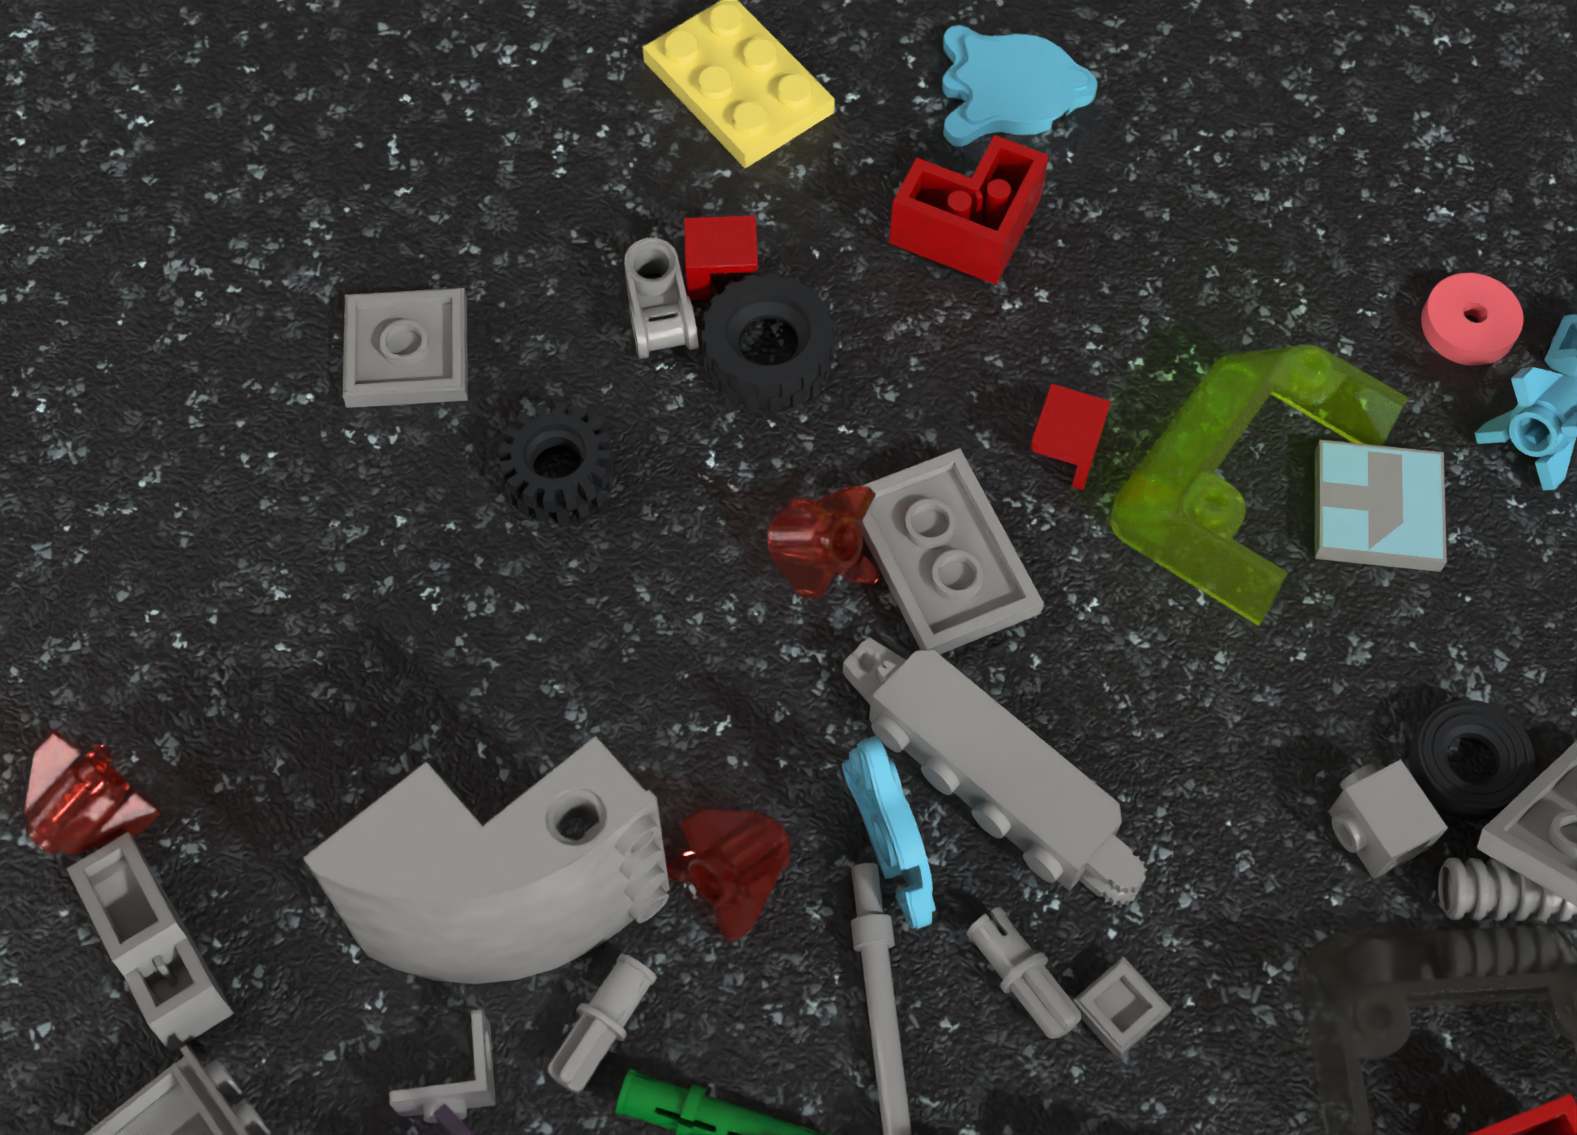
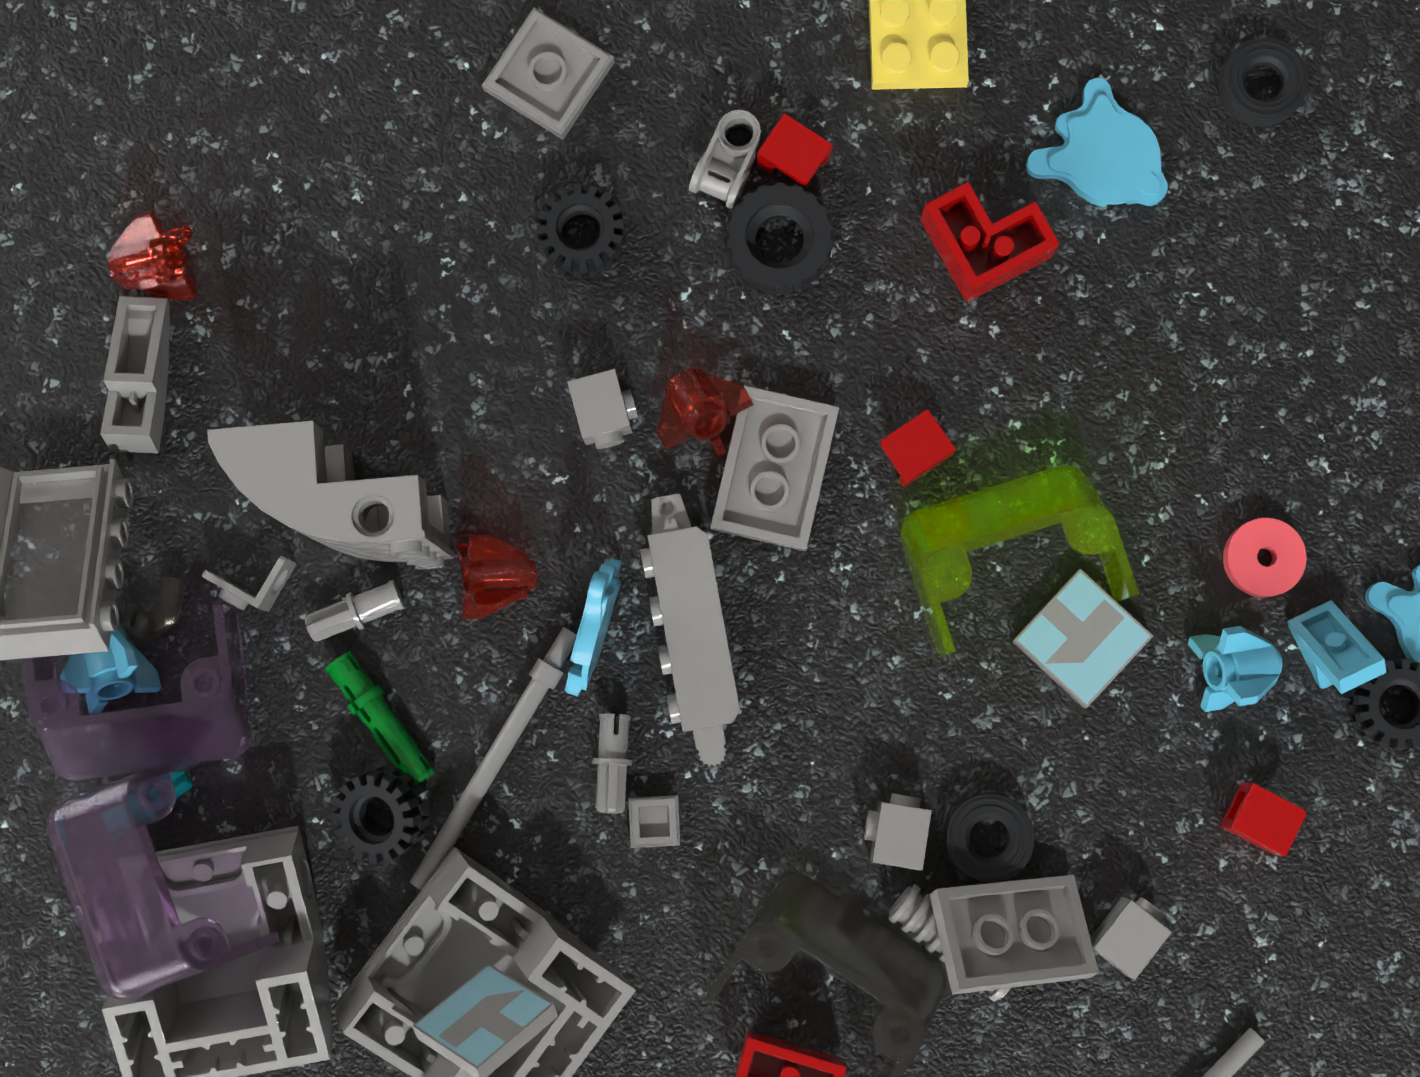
camera: 45 degrees right, 20 degrees up
(715, 614) = (602, 408): none -> light grey brick

